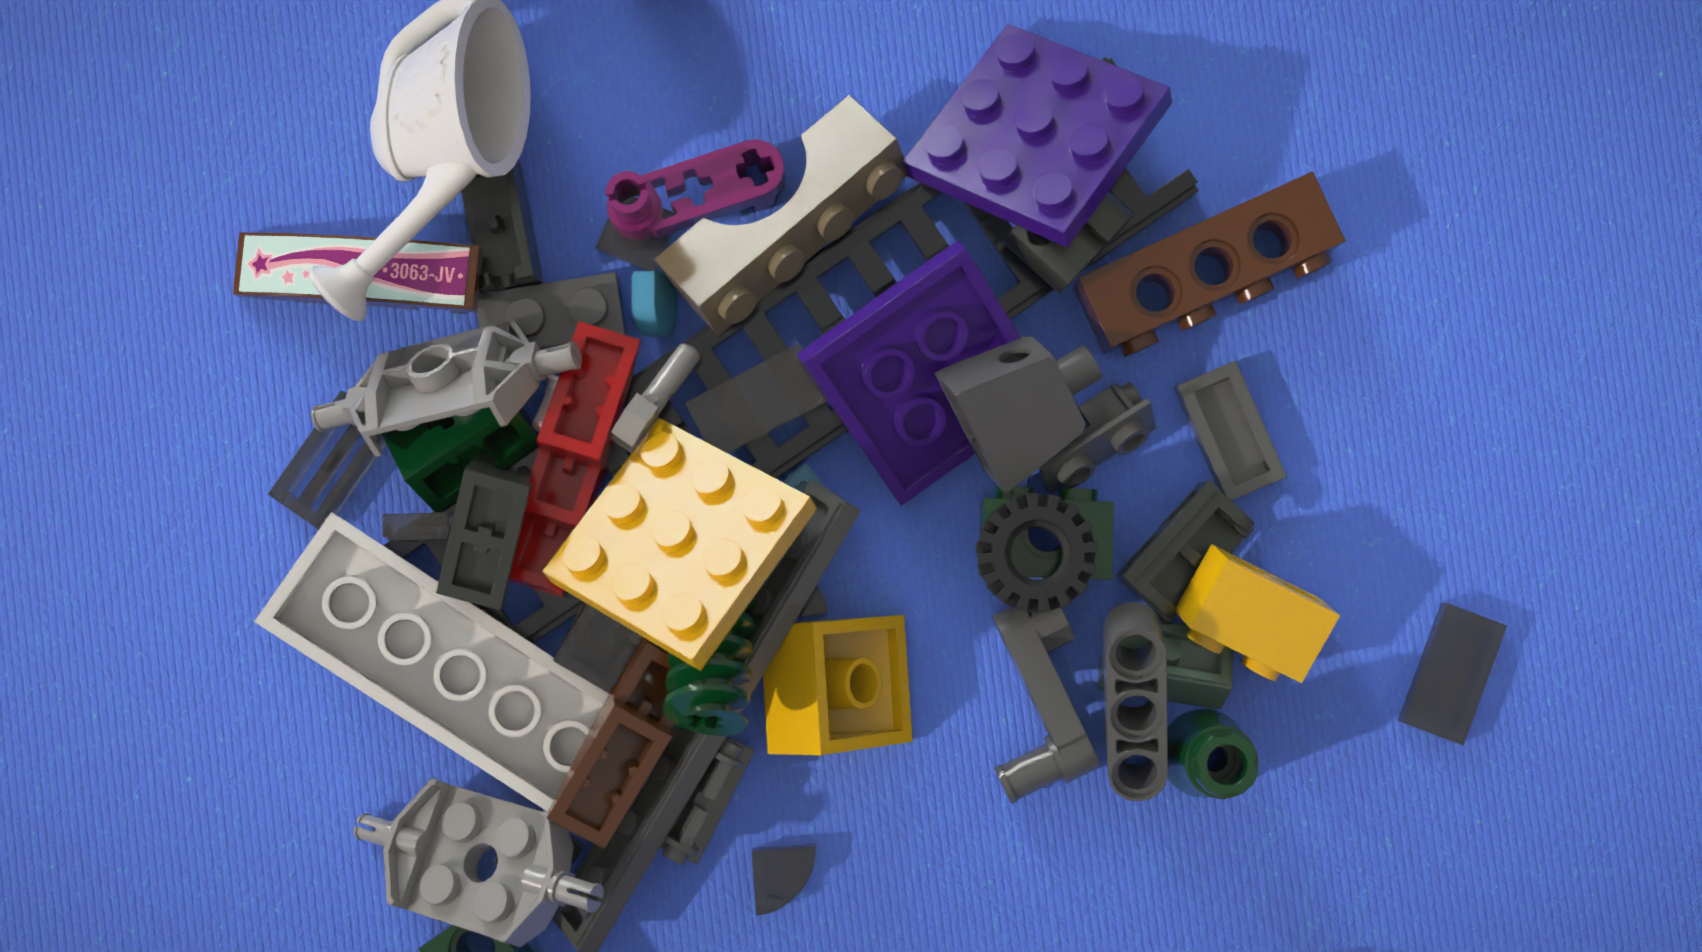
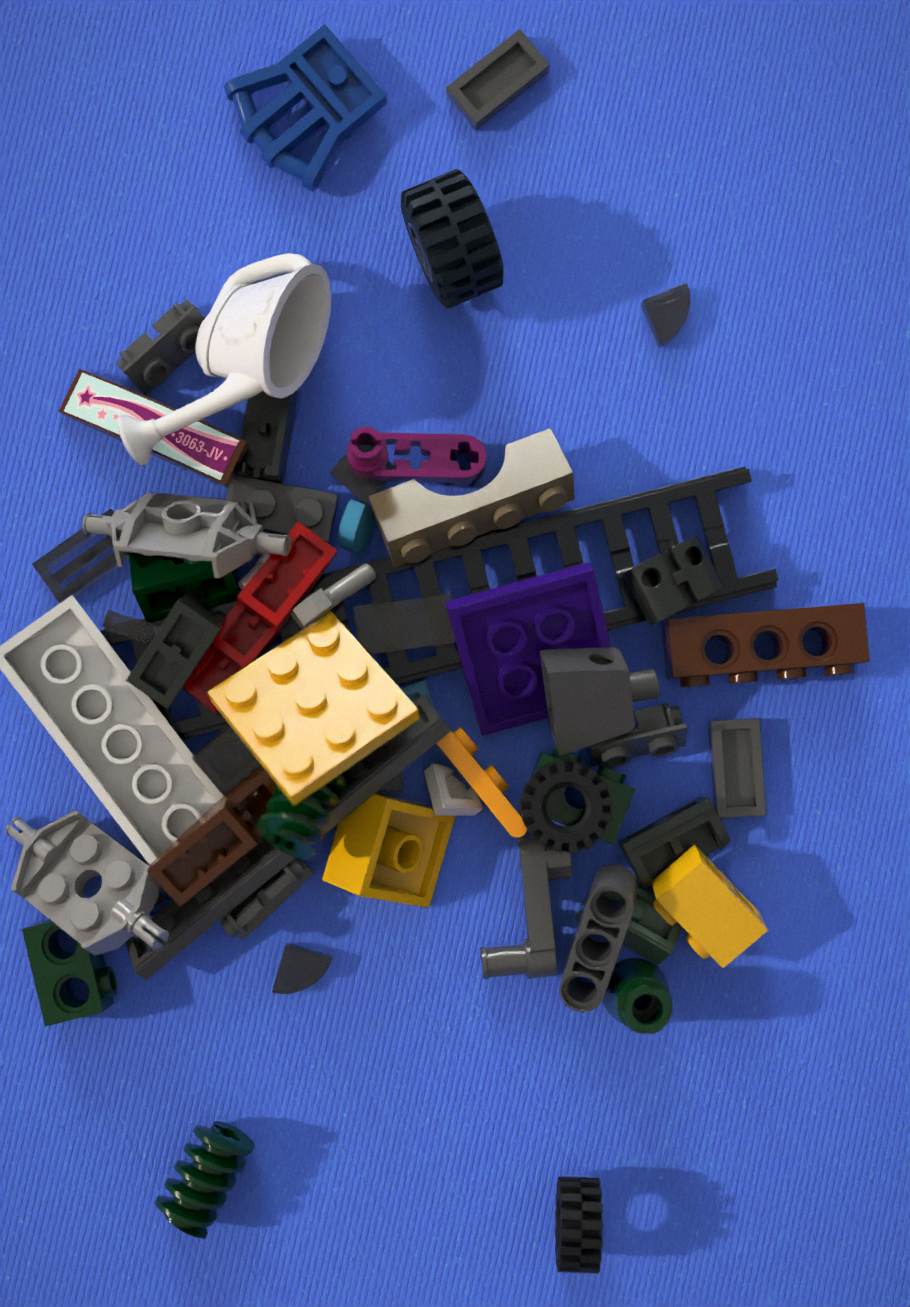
camera: 10 degrees right, 0 degrees up
(326, 190) = (150, 361): none -> dark grey hinge
(886, 591) = (449, 794): none -> white tile
(928, 562) = (486, 782): none -> light orange hinge
(1038, 134) = (676, 505): dark purple plate -> none
(1452, 673) = (834, 999): clear smoke tile -> none

